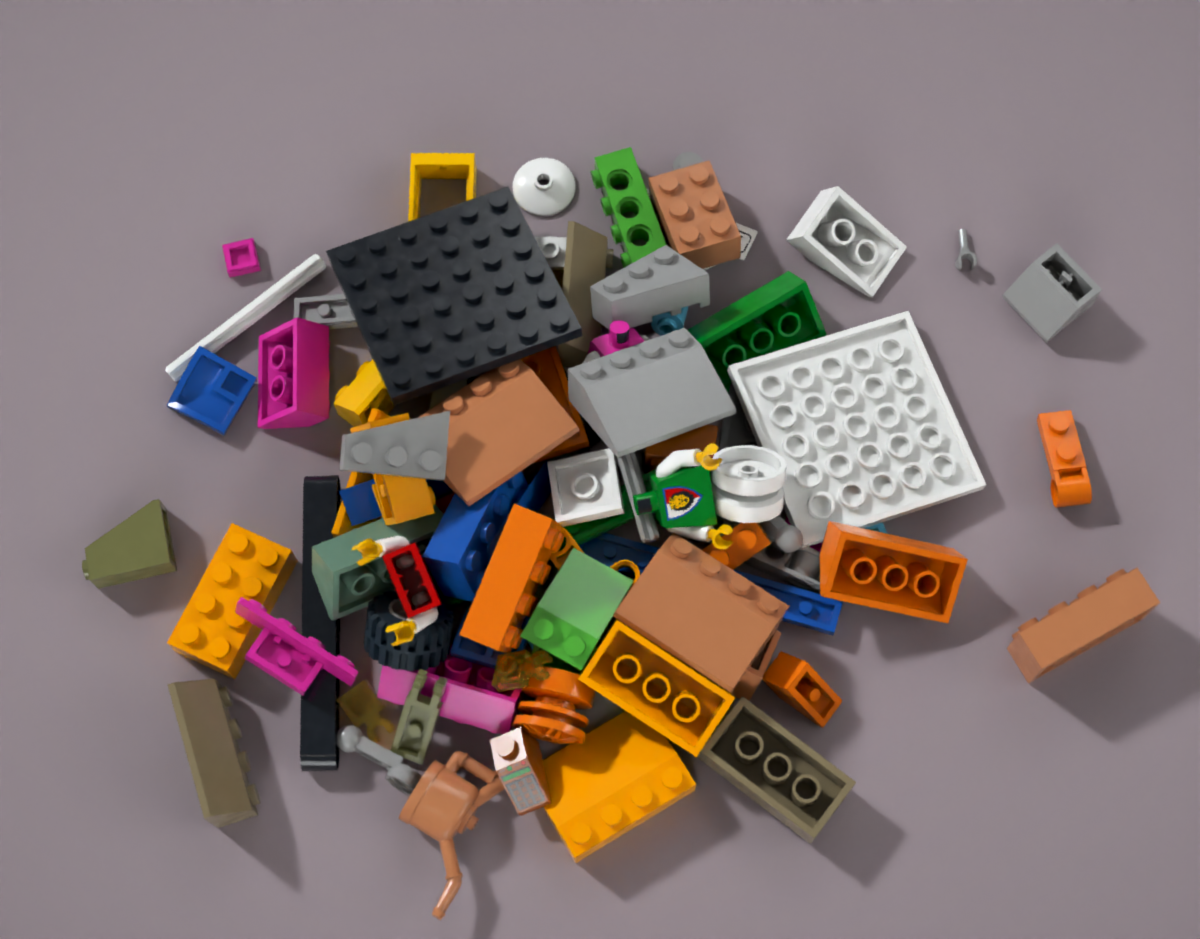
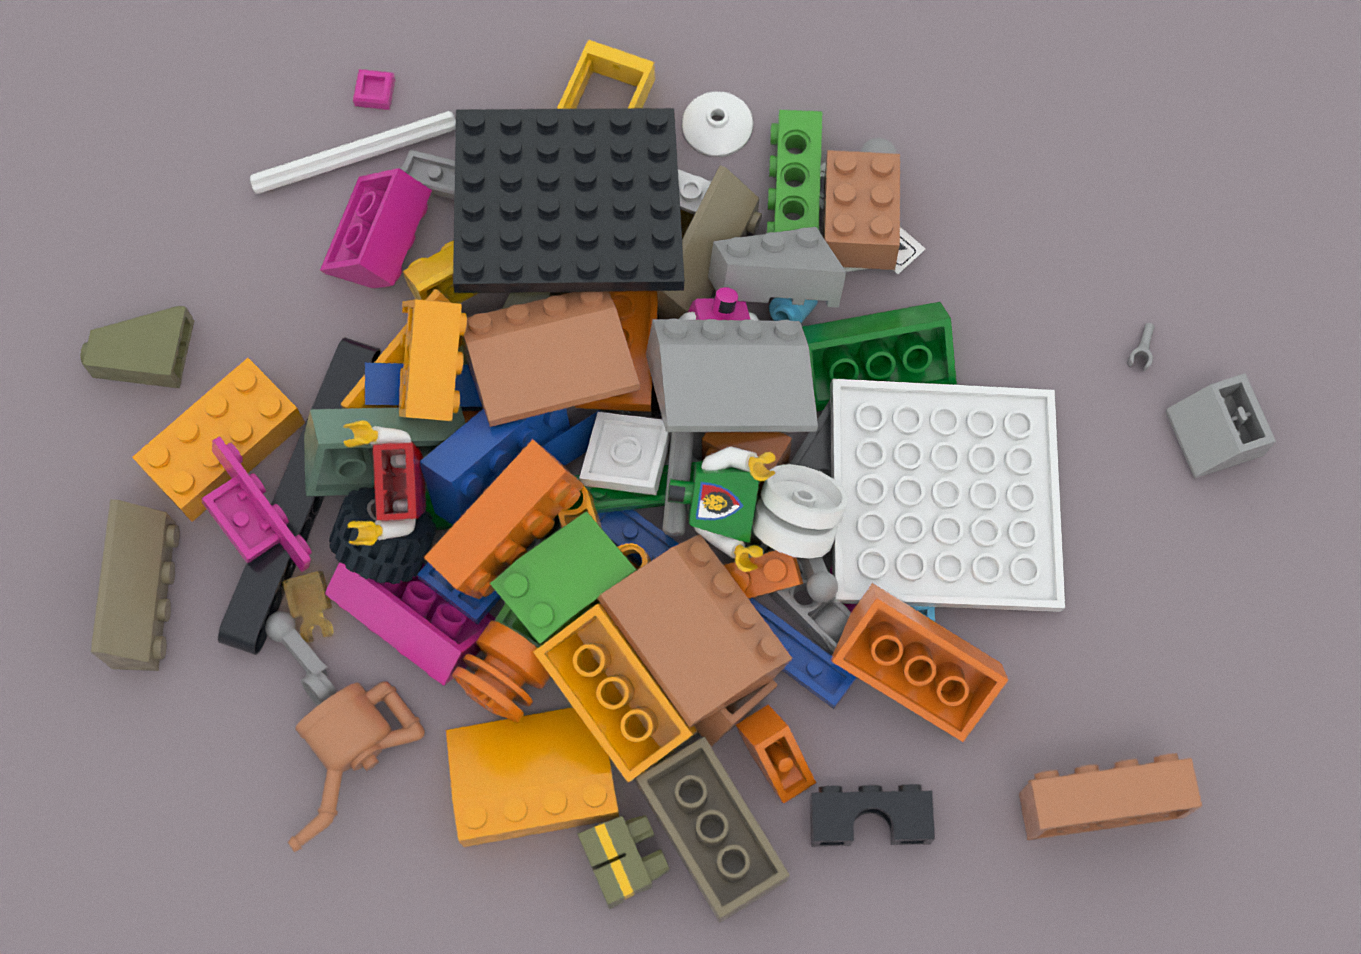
camera: 20 degrees right, 0 degrees up
(211, 390) = (287, 215): blue plate -> none
(399, 449) = (437, 339): light grey wing -> none
(418, 720) = (356, 632): olive hinge -> none
(516, 669) = (475, 616): clear yellow plate -> none
(521, 770) = (441, 726): slope -> none
(723, 832) = (631, 873): none -> olive hips
(846, 241) = (1017, 293): white slope -> none
(925, 697) = (905, 811): none -> black arch
(1065, 459) = (1163, 612): orange plate -> none

